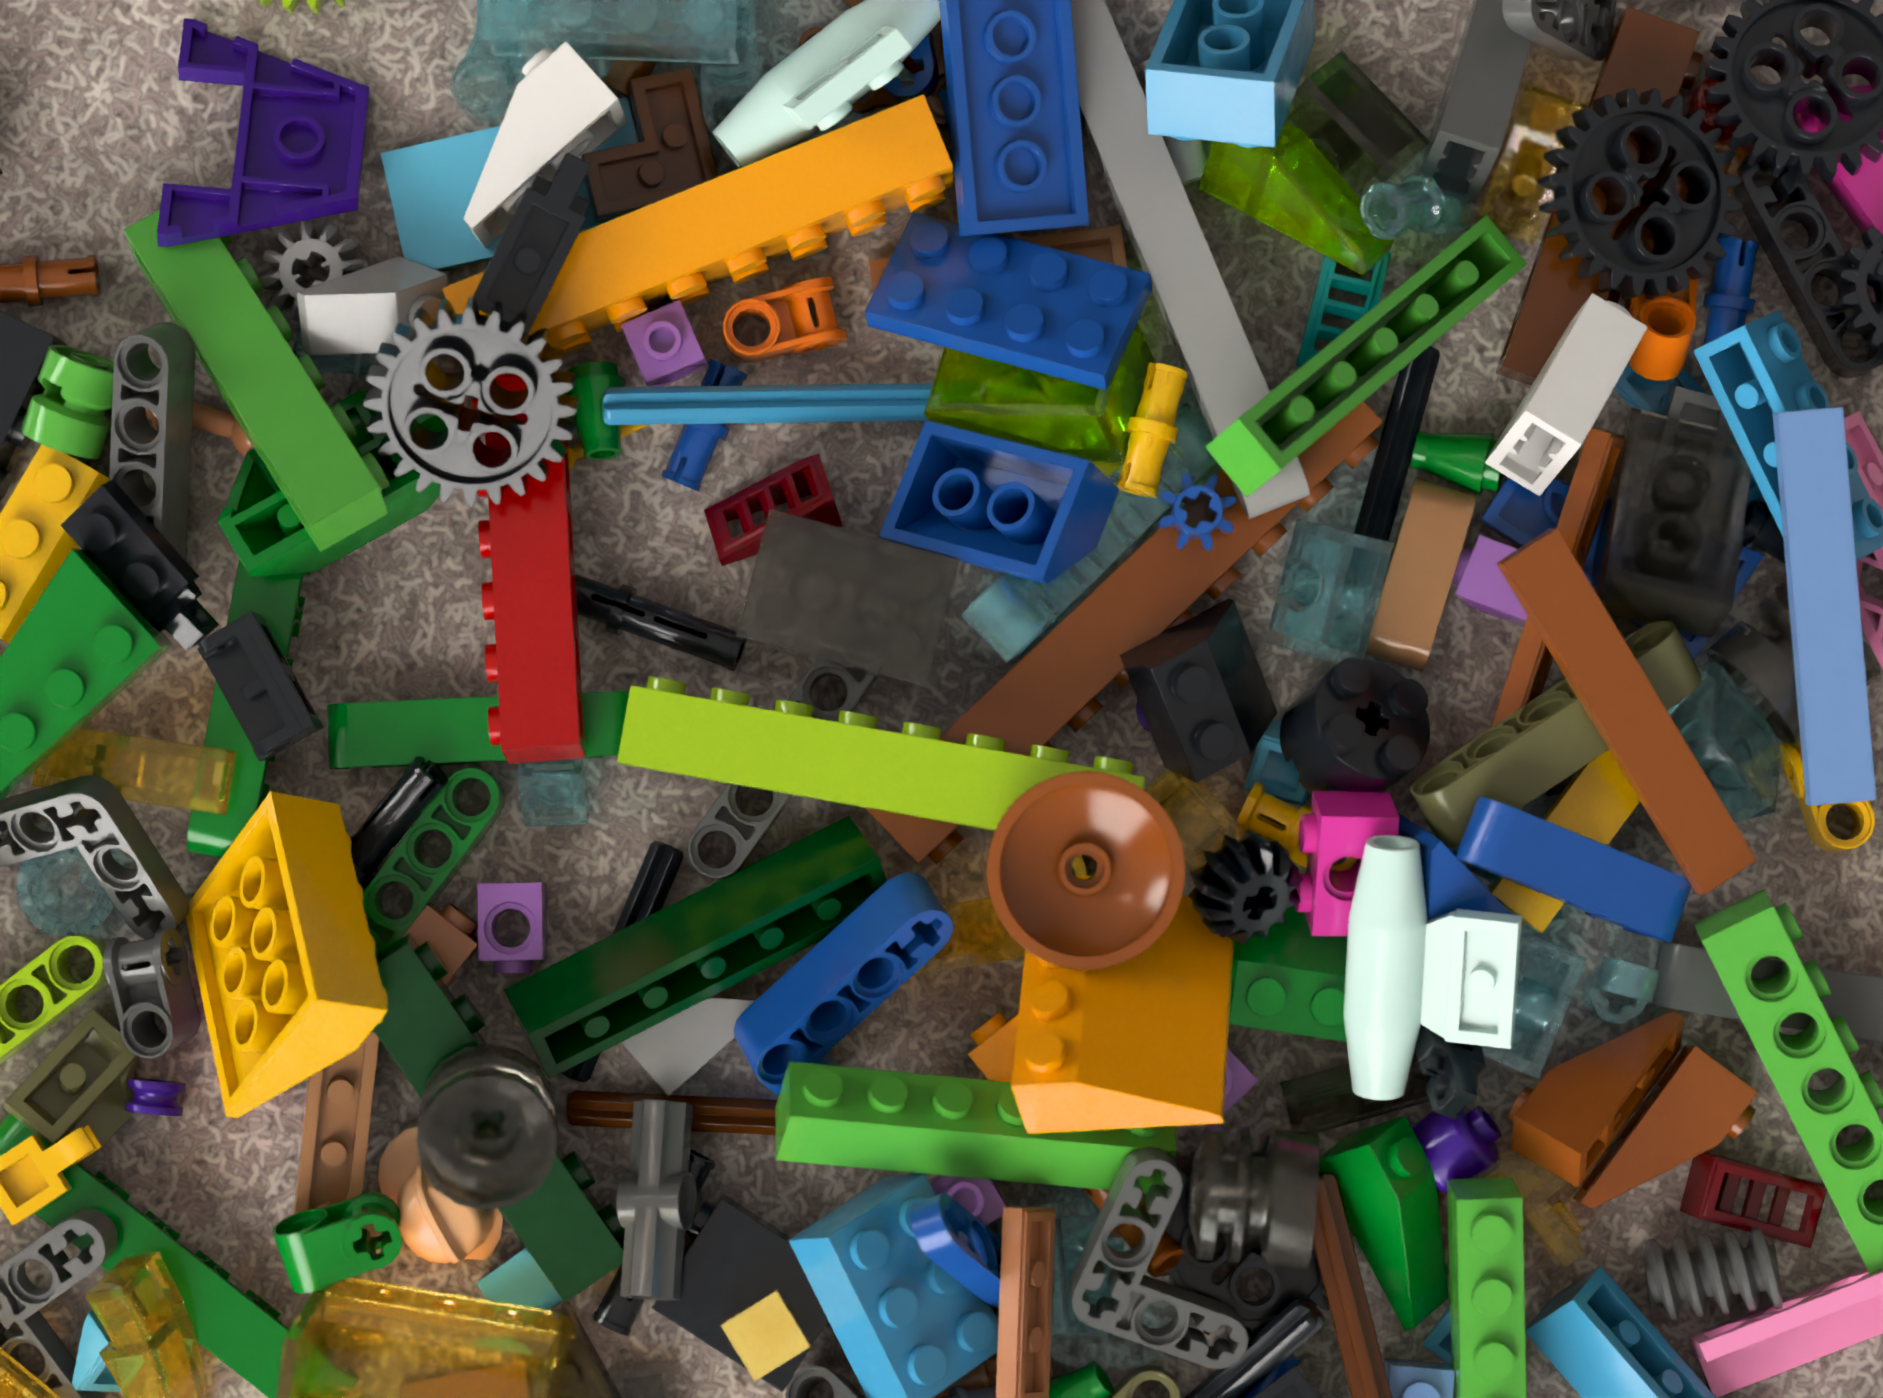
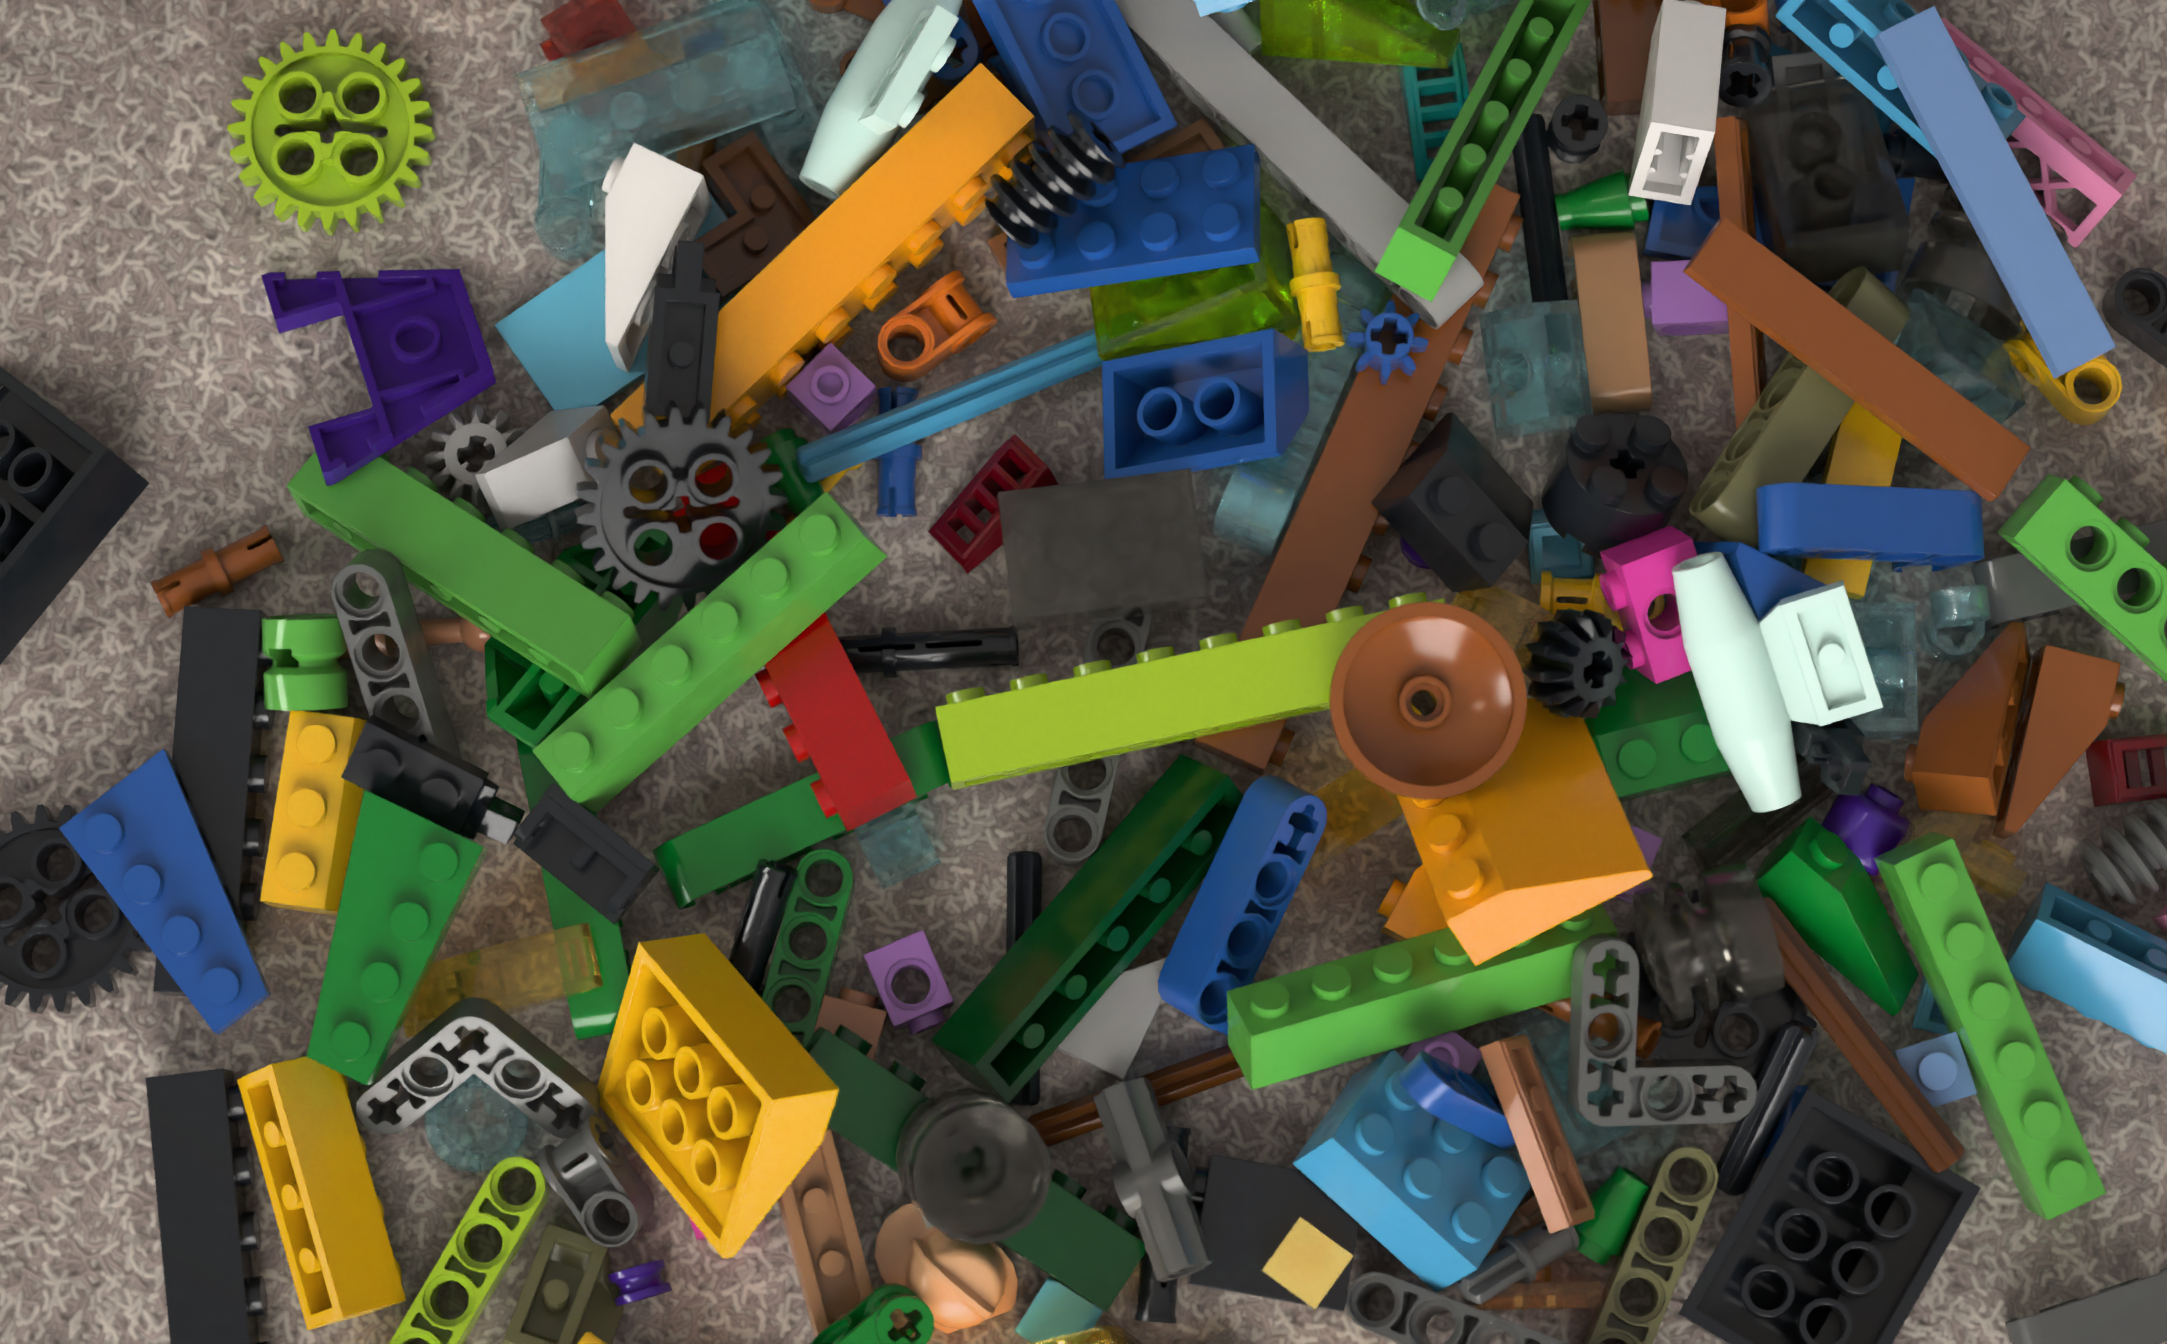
camera: 30 degrees left, 5 degrees down
(444, 549) = (709, 653): none -> bright green brick
(946, 236) = (1054, 180): none -> black piece
(1485, 376) = (1593, 122): none -> black bush
(1639, 394) = (1750, 56): none -> black bush

